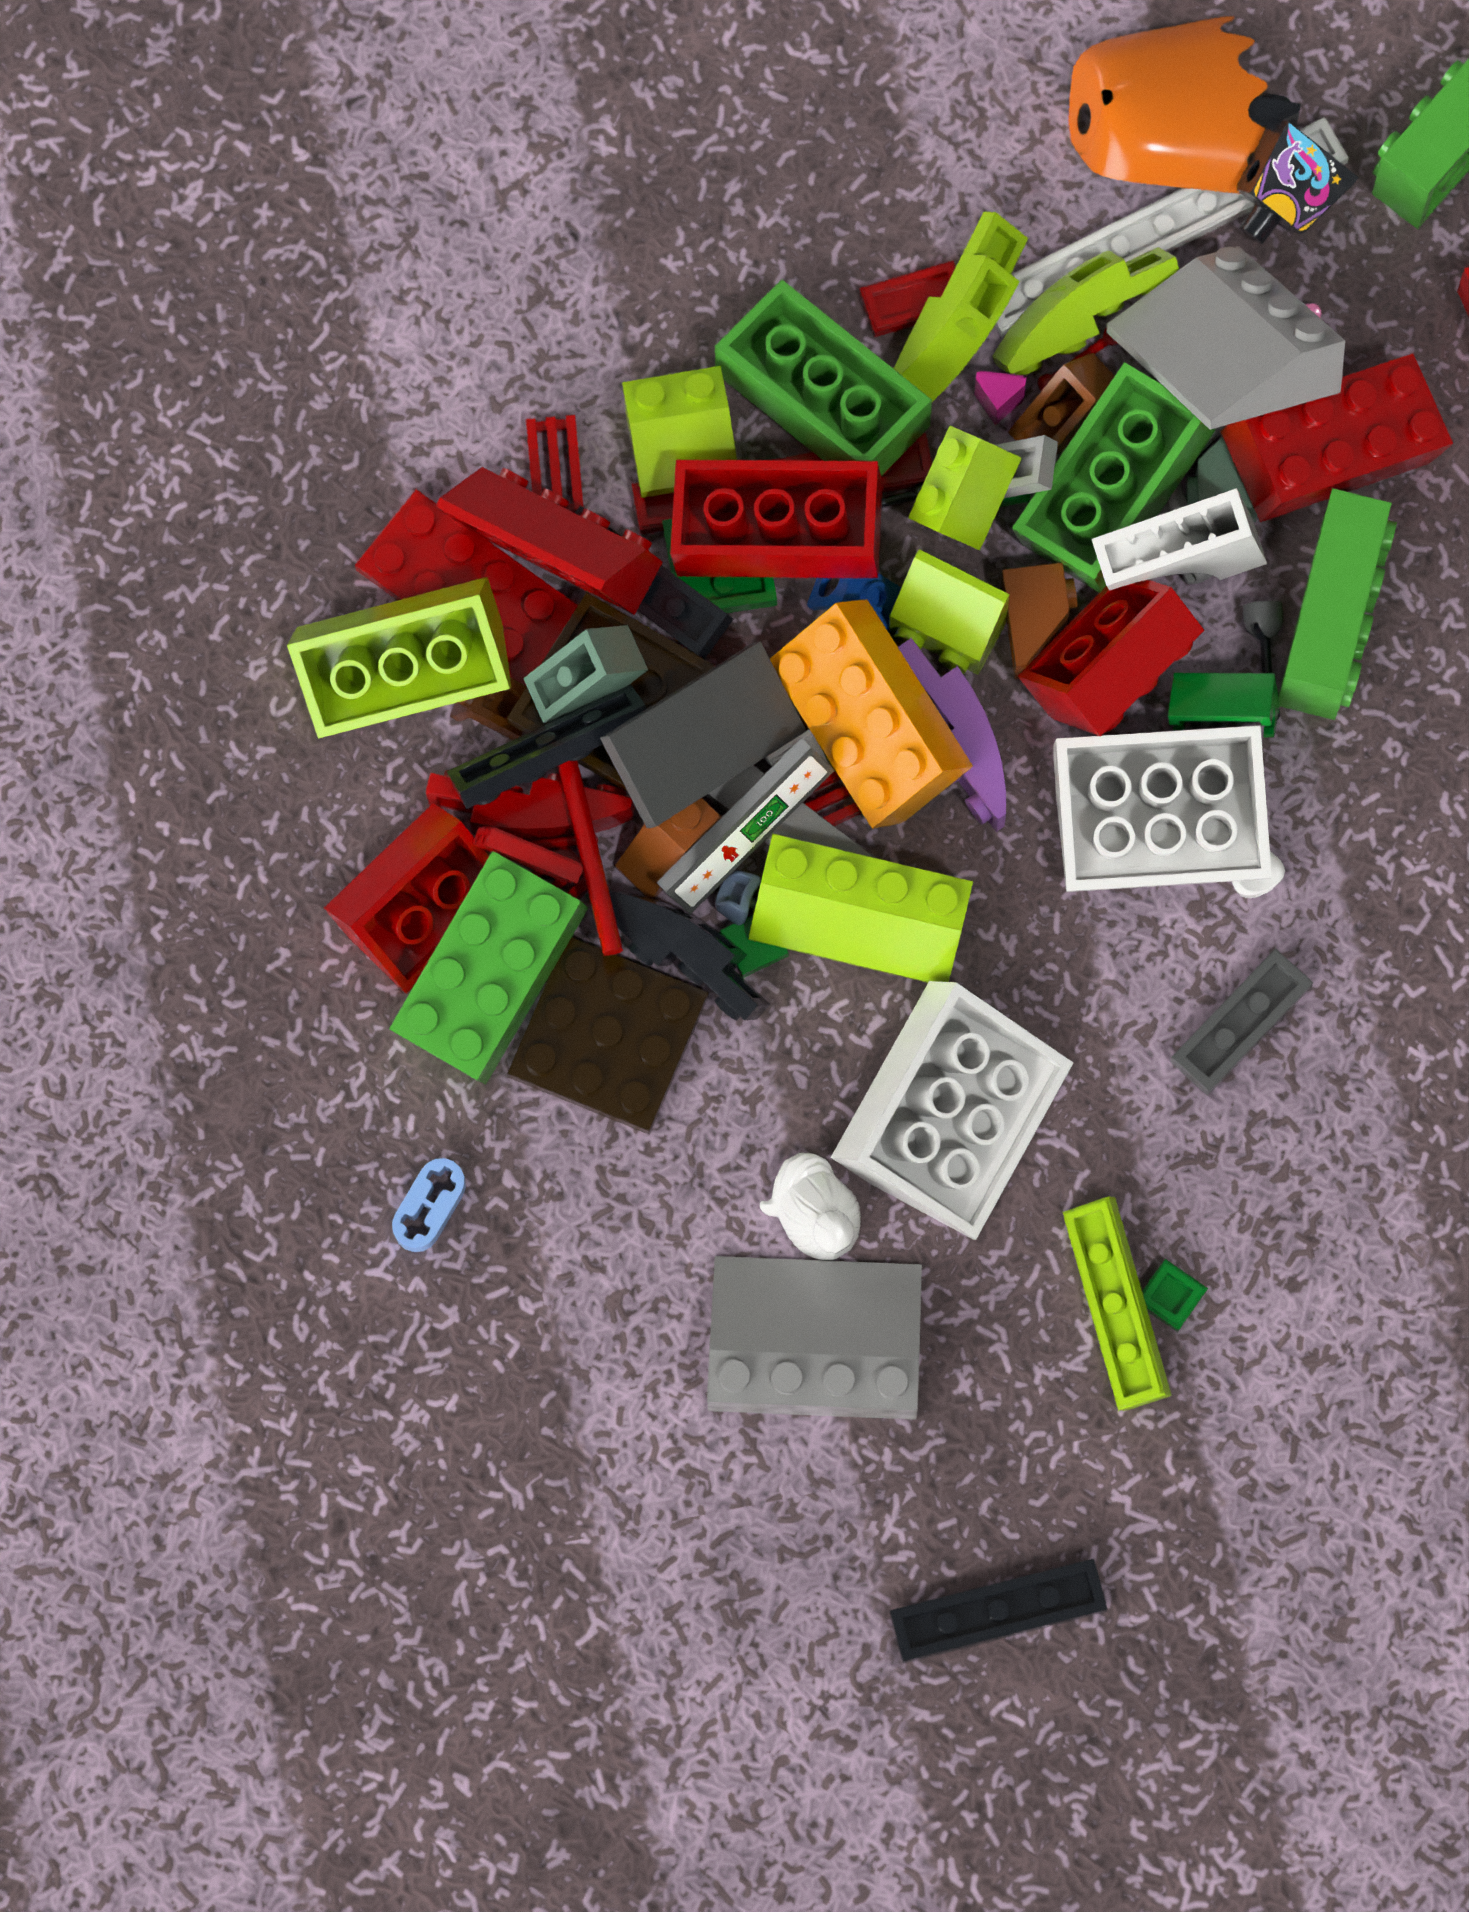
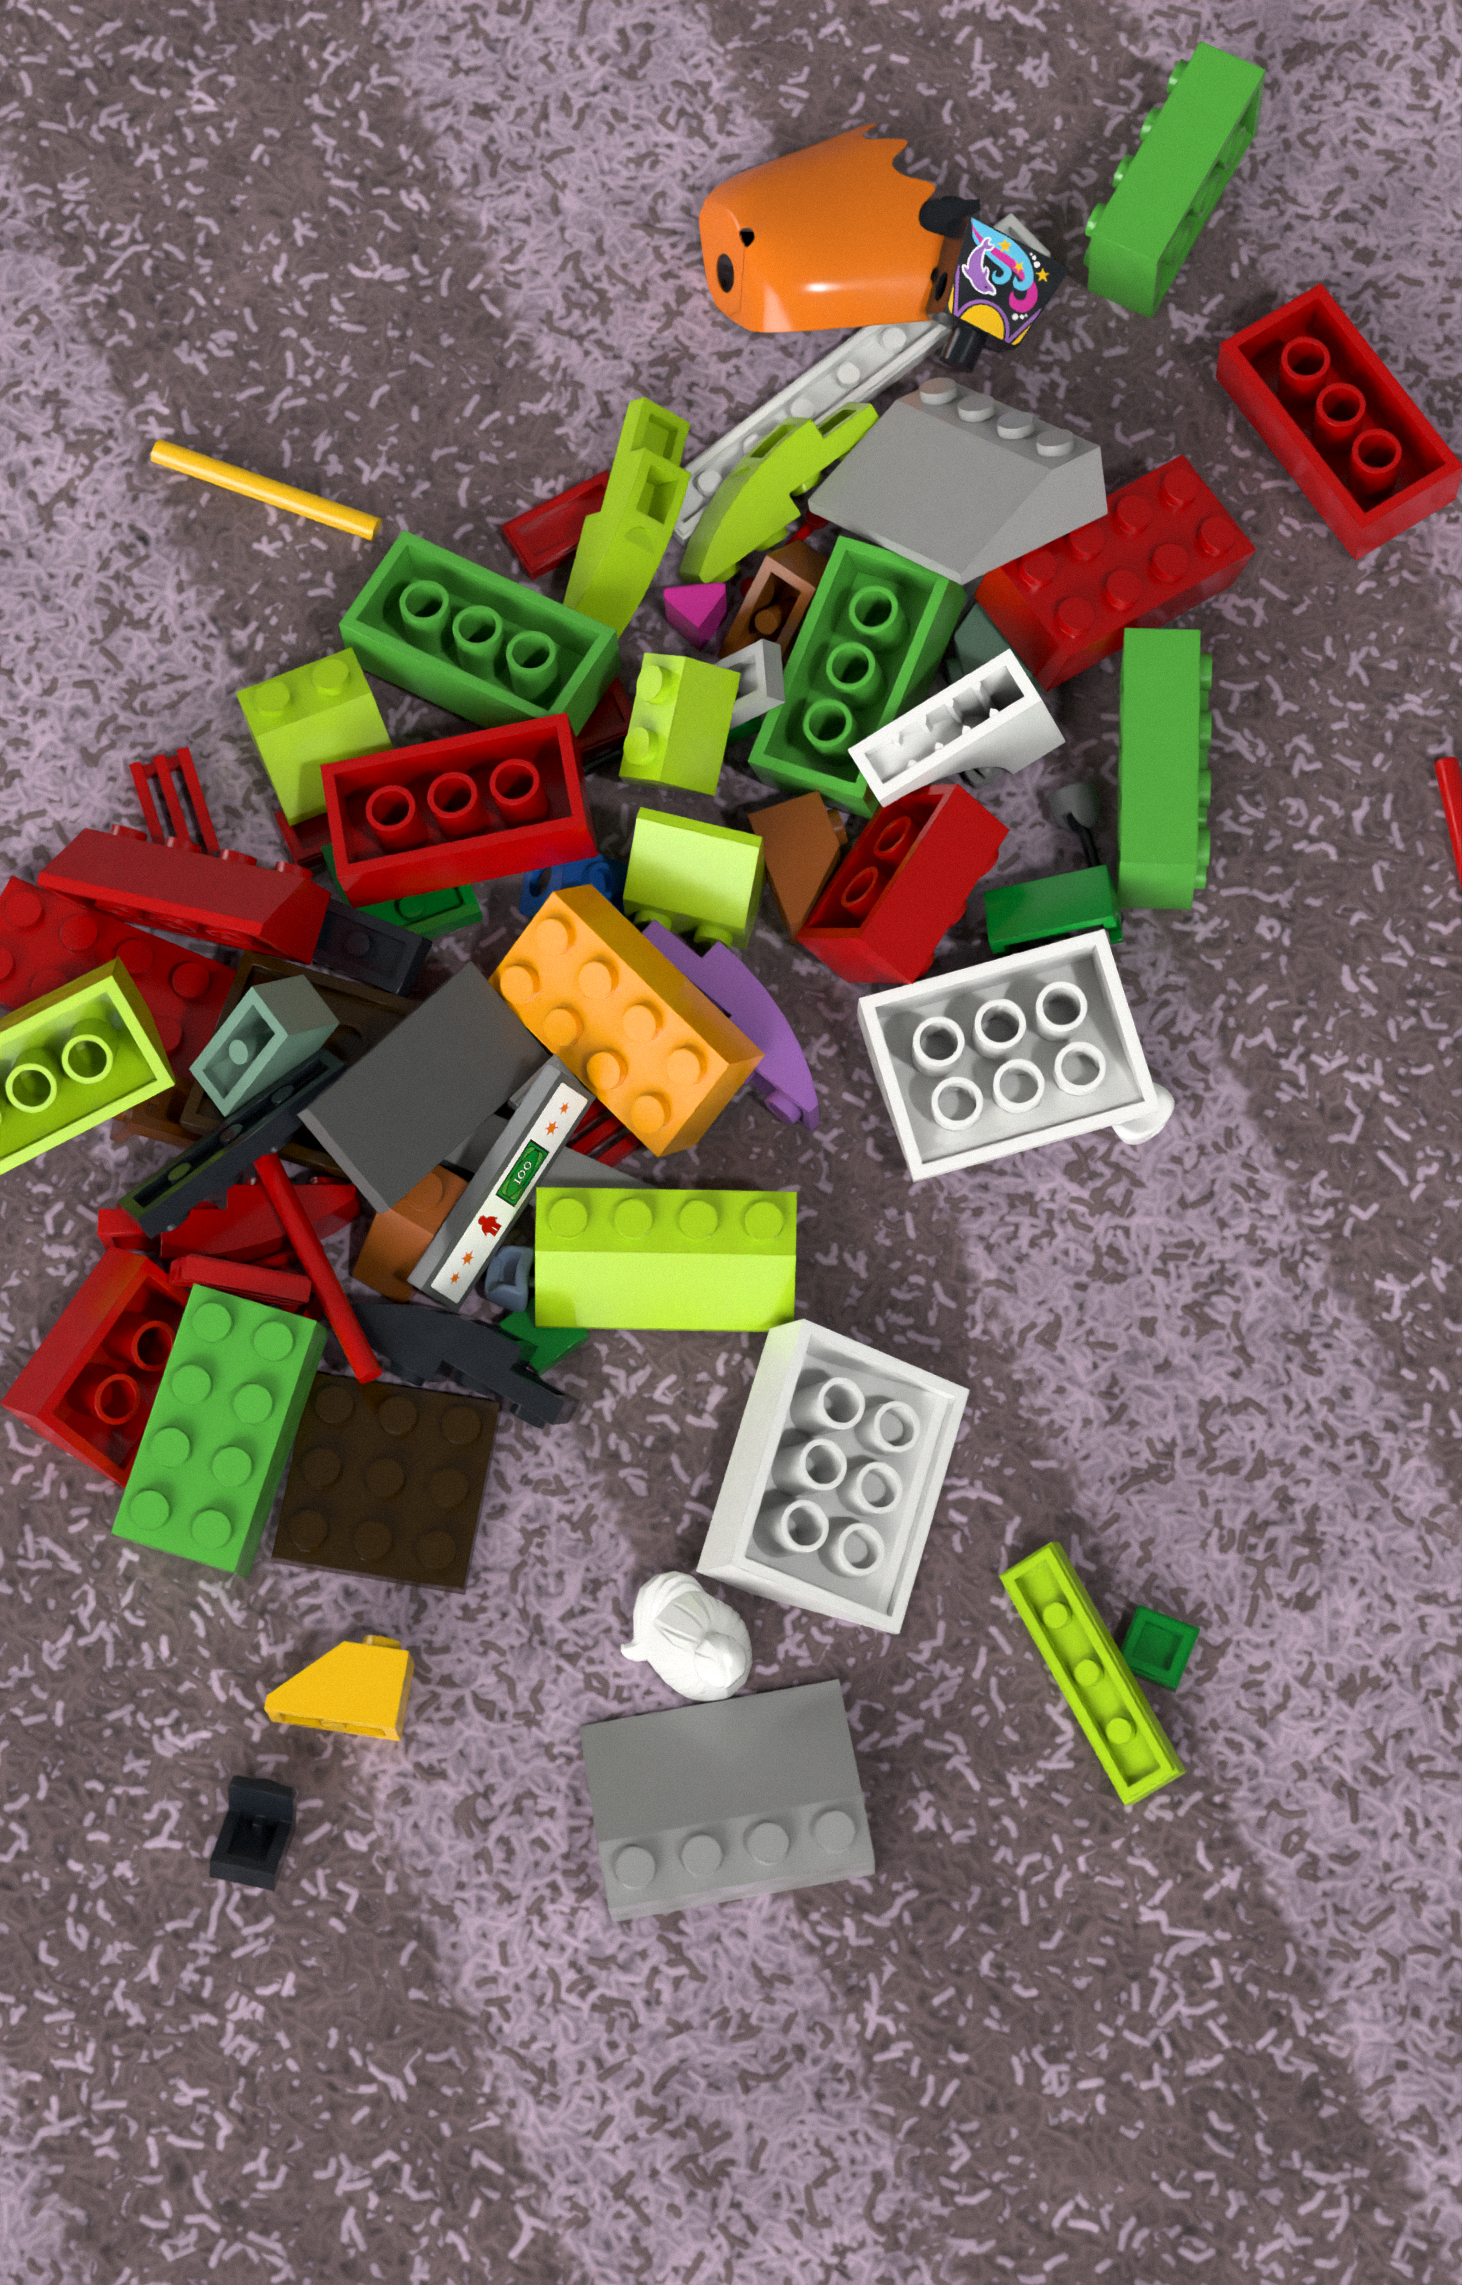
camera: 10 degrees left, 5 degrees down
(418, 1198) = (222, 1747): light blue beam -> none
(451, 1282) = (255, 1832): none -> black bracket
(546, 1190) = (349, 1690): none -> yellow slope
(680, 216) = (266, 489): none -> yellow bar
(998, 1611) = (1033, 2092): black plate -> none
(1241, 1022) = (1164, 1294): dark grey plate -> none

